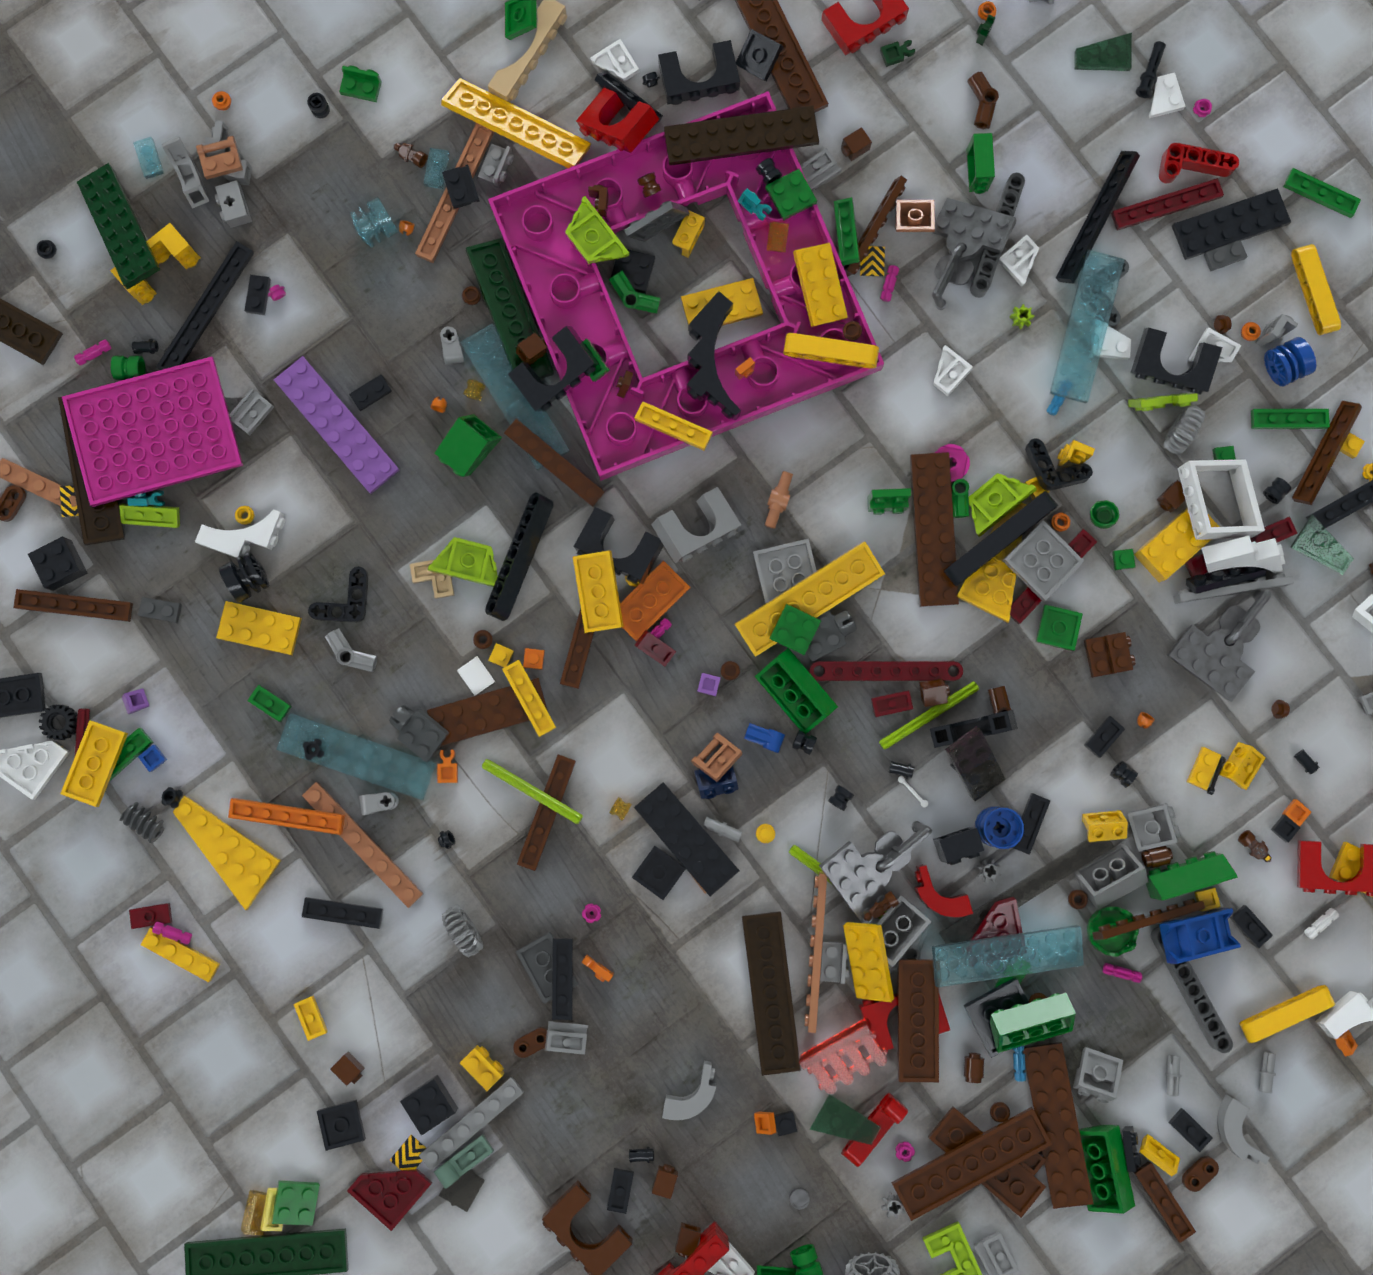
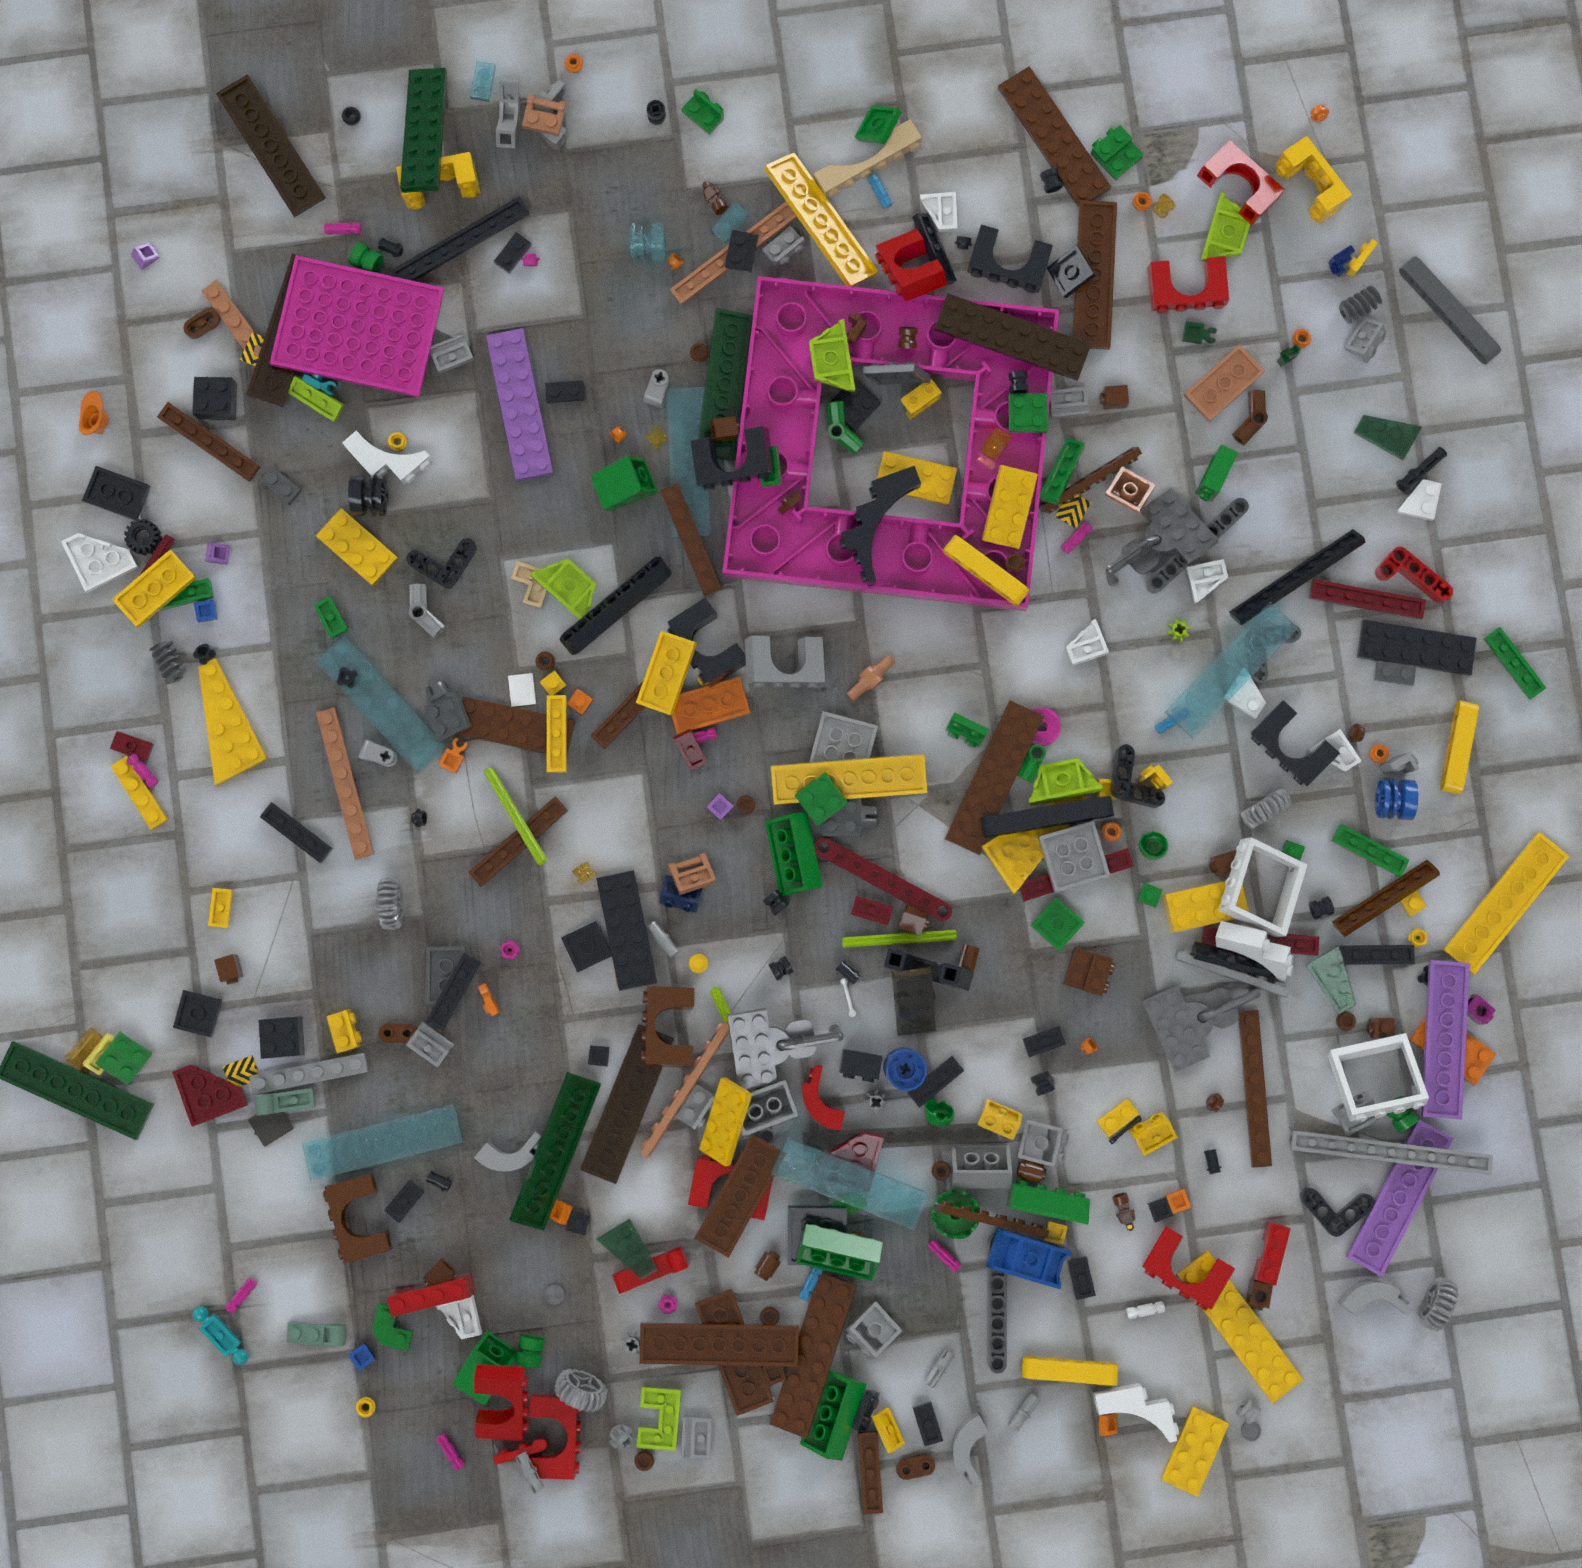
camera: 30 degrees right, 0 degrees up
(233, 204) = (540, 153): light grey brick -> none
(286, 816) = (293, 723): orange tile -> none
(553, 73) = (879, 191): none -> dark azure axle
(571, 1149) = (382, 1142): none -> clear light blue plate
(665, 1181) = (447, 1214): reddish brown brick -> none
(673, 426) = (810, 563): yellow plate -> none
(722, 964) = (598, 1055): none -> black plate
(731, 1072) = (555, 1151): none -> dark green plate
(745, 369) = (901, 546): orange plate -> none
(751, 203) = (988, 403): teal plate -> none
(768, 739) = (746, 883): blue piece -> none
(771, 932) = (655, 1051): none -> reddish brown arch
(845, 1041) = (667, 1178): clear red fence -> none
(880, 908) = (759, 1080): reddish brown piece -> none
(942, 83) = (1224, 383): none -> nougat plate
(1049, 850) = (938, 1113): none -> green hair
(1147, 403) = (1244, 767): lime plate -> none
(1205, 104) = (1449, 524): dark pink plate -> none
(1307, 679) = (1254, 1089): none -> reddish brown plate
(1351, 577) = (1346, 1021): none -> reddish brown plate

